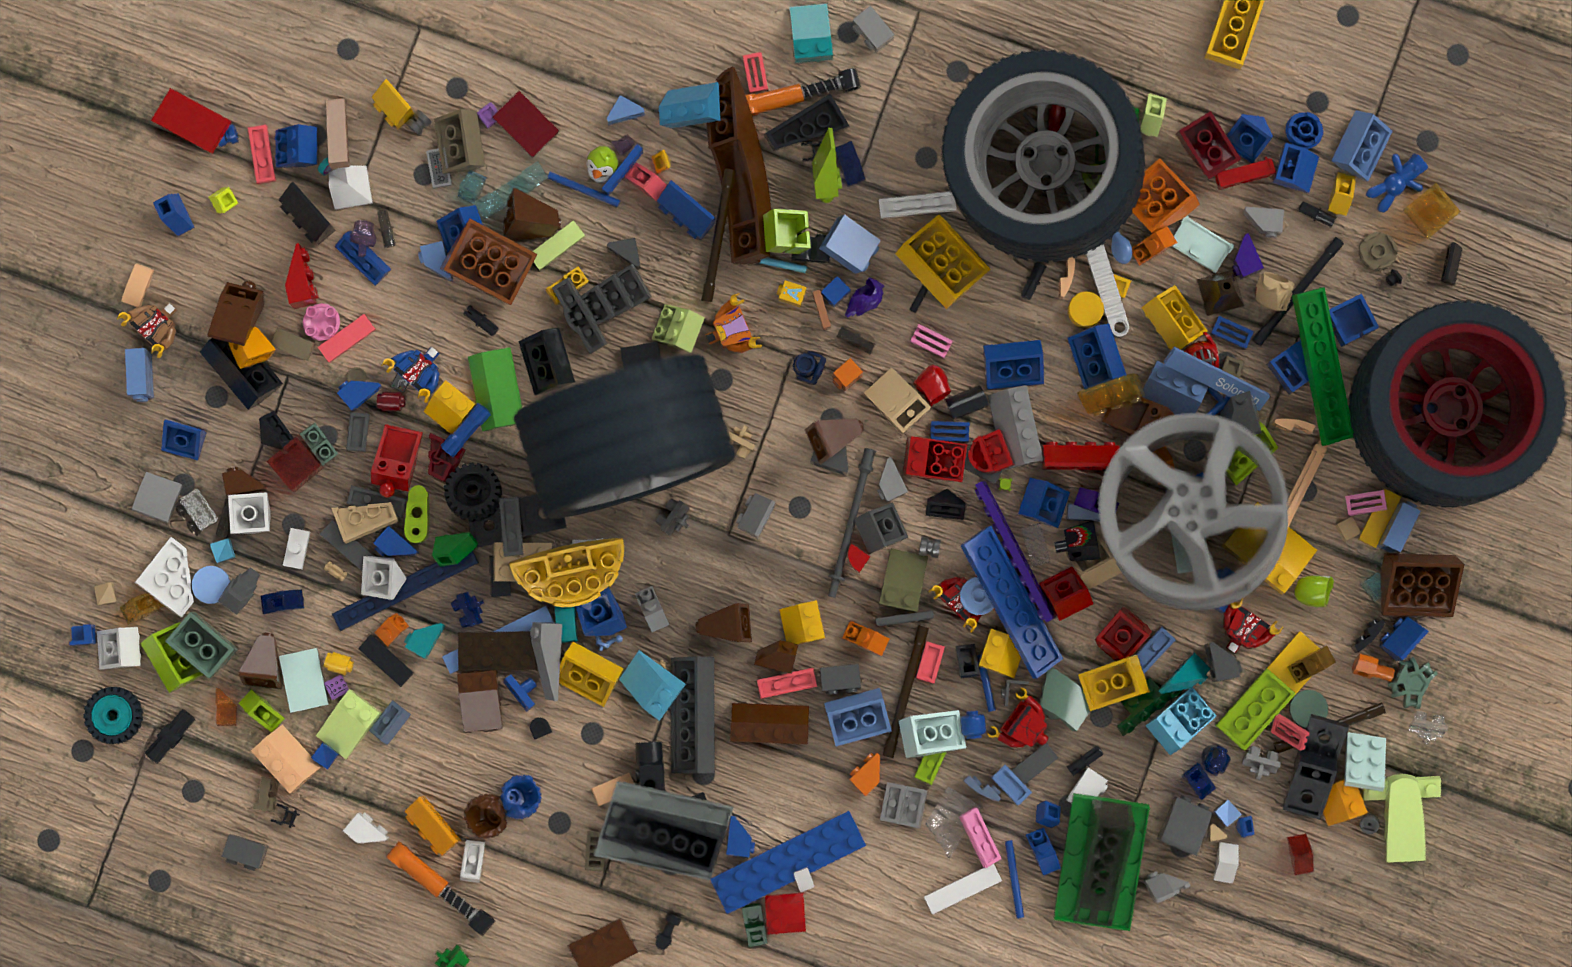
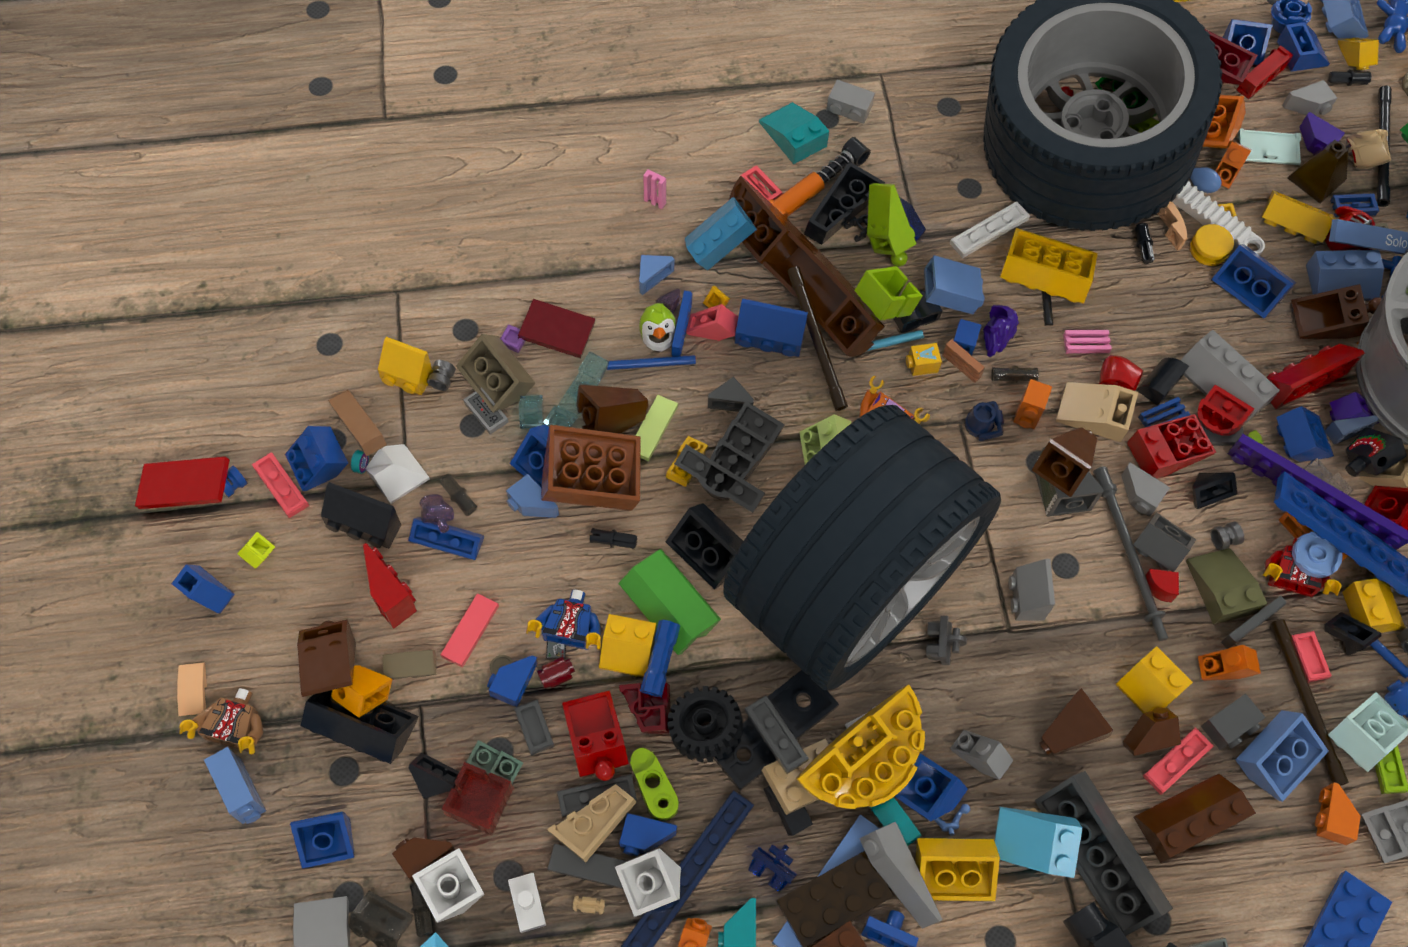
camera: 30 degrees left, 20 degrees down
(321, 321) = (431, 625): bright pink dish -> none
(453, 548) = (718, 799): green slope -> none
(662, 38) = (650, 188): none -> bright pink tile
(1013, 364) = (1182, 322): blue slope -> none
(1111, 394) = (1298, 299): clear yellow slope -> none

